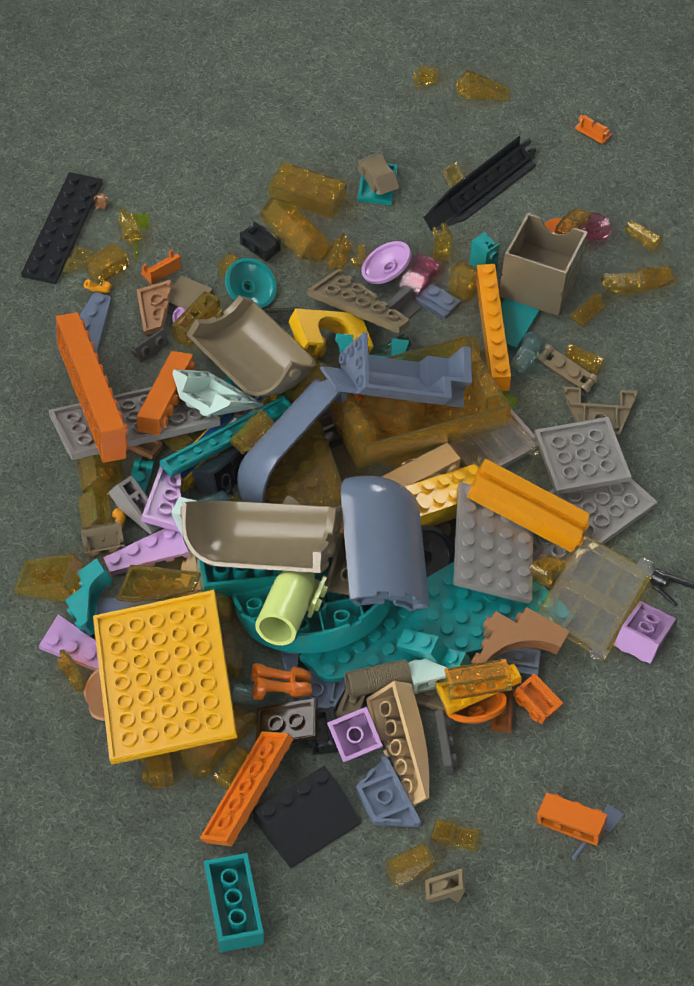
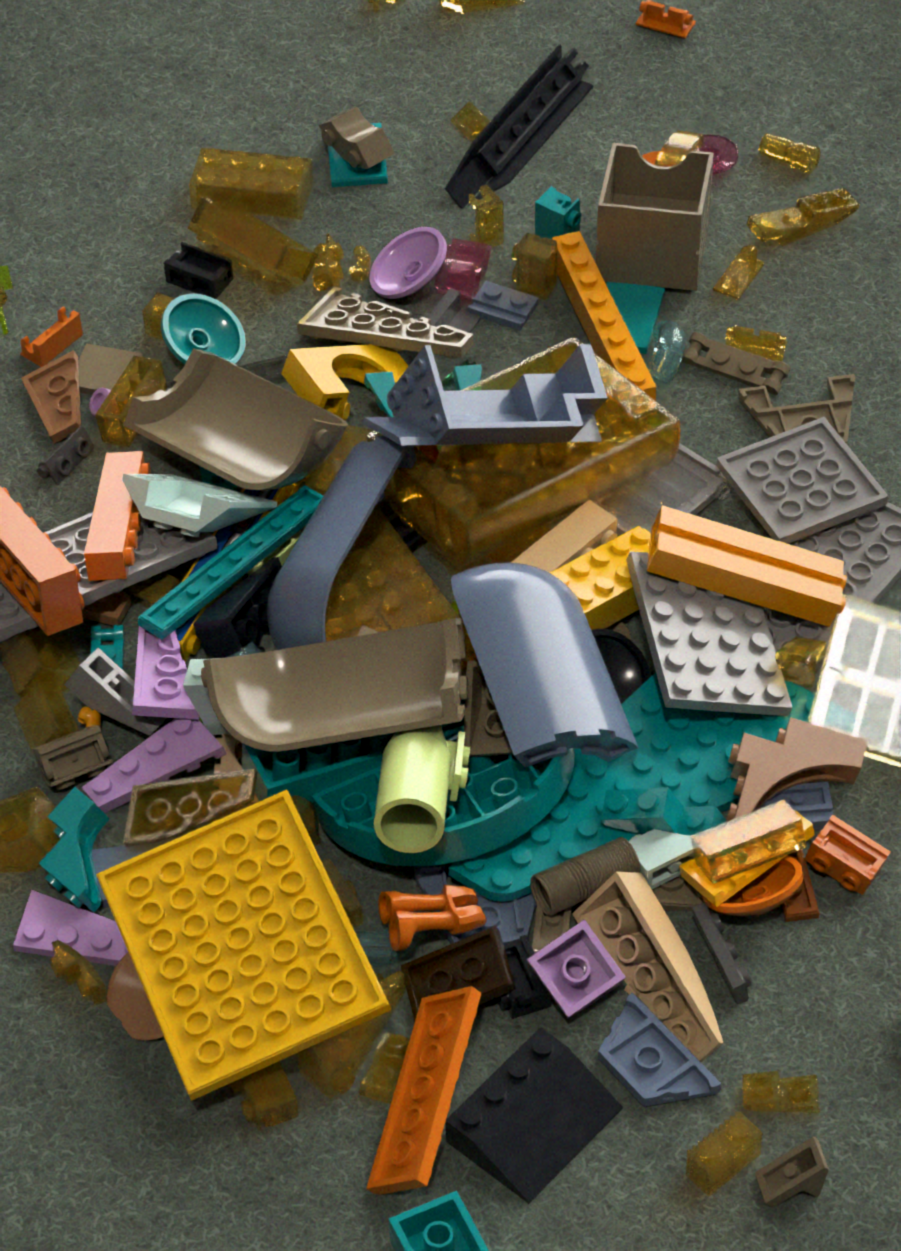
camera: 10 degrees left, 5 degrees down
(251, 431) = (273, 544): clear yellow hinge -> none

